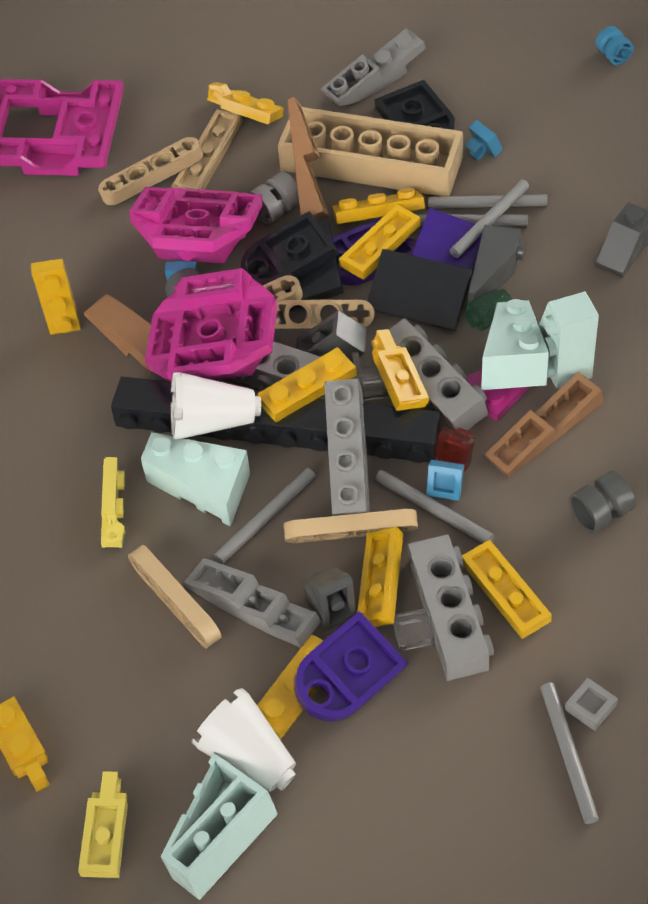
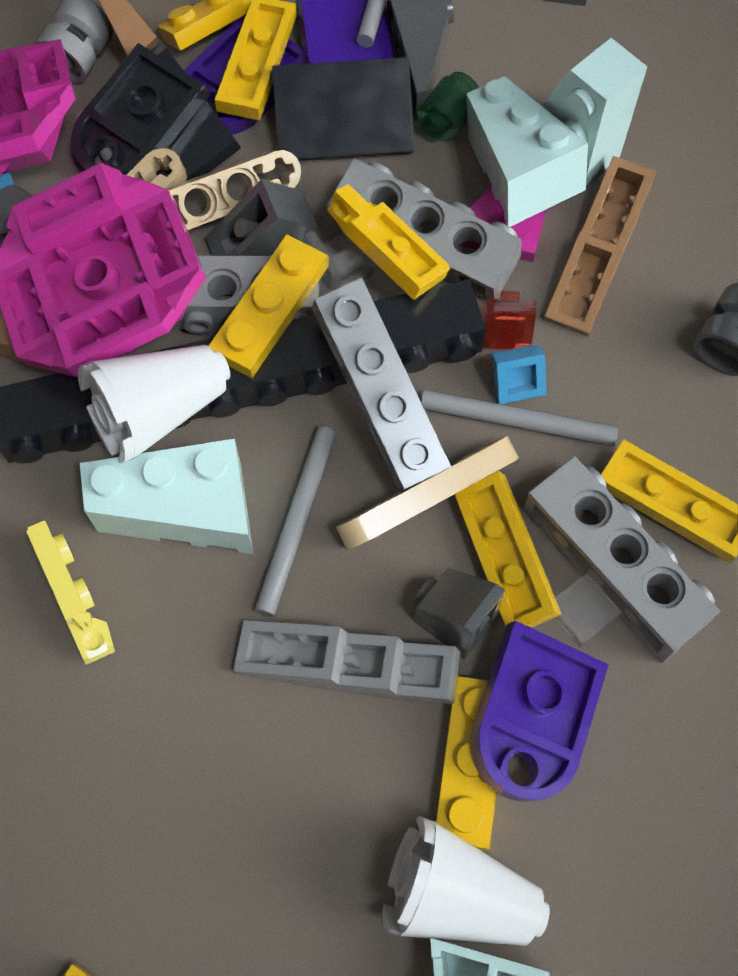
camera: 30 degrees left, 15 degrees up
(175, 596) = (234, 700): tan beam -> none

